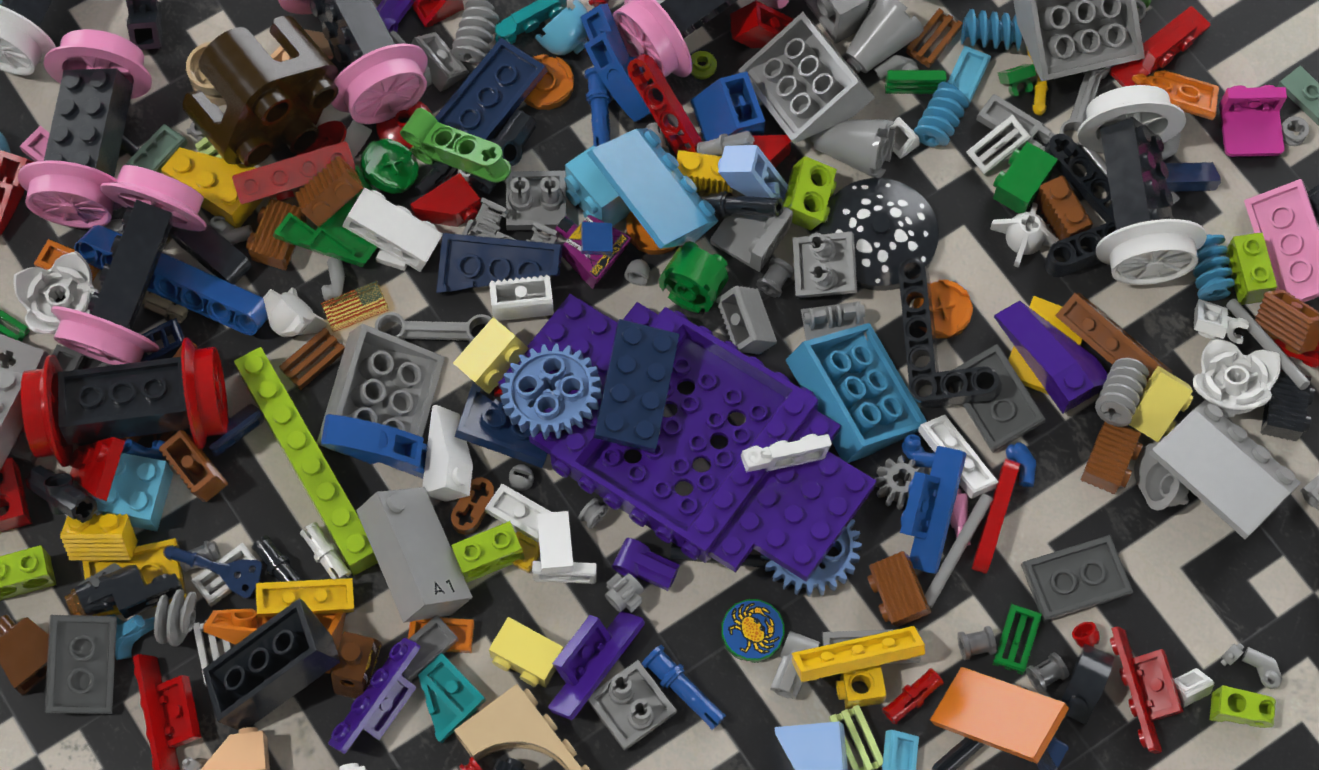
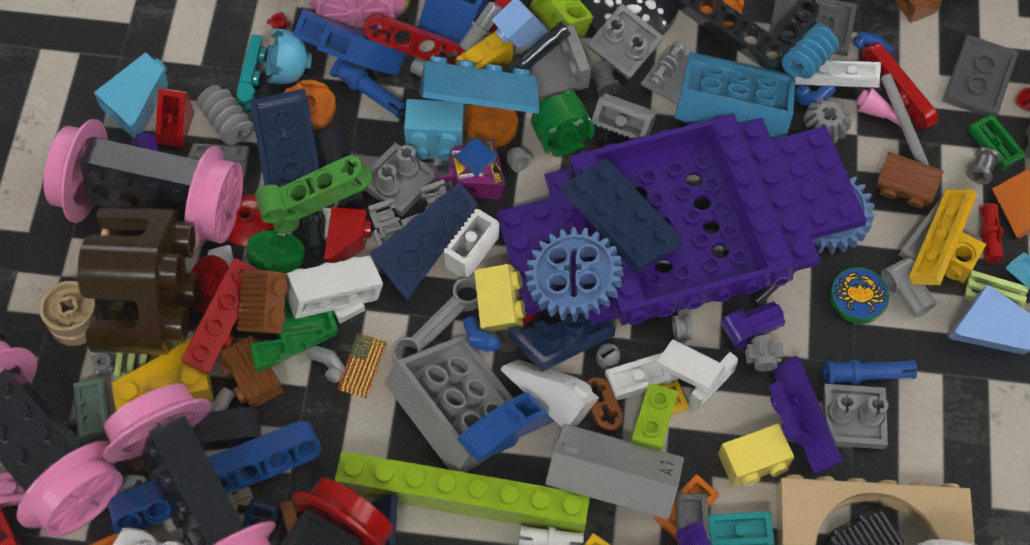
camera: 50 degrees left, 5 degrees down
(291, 315) = (330, 414): white piece -> none
(306, 349) = (377, 403): dark orange tile -> none
(450, 373) = (478, 338): none -> blue arm
(786, 454) = (766, 158): white hinge -> none
(931, 508) = (869, 110): blue bracket -> none
(949, 415) = (810, 52): none -> dark azure piece

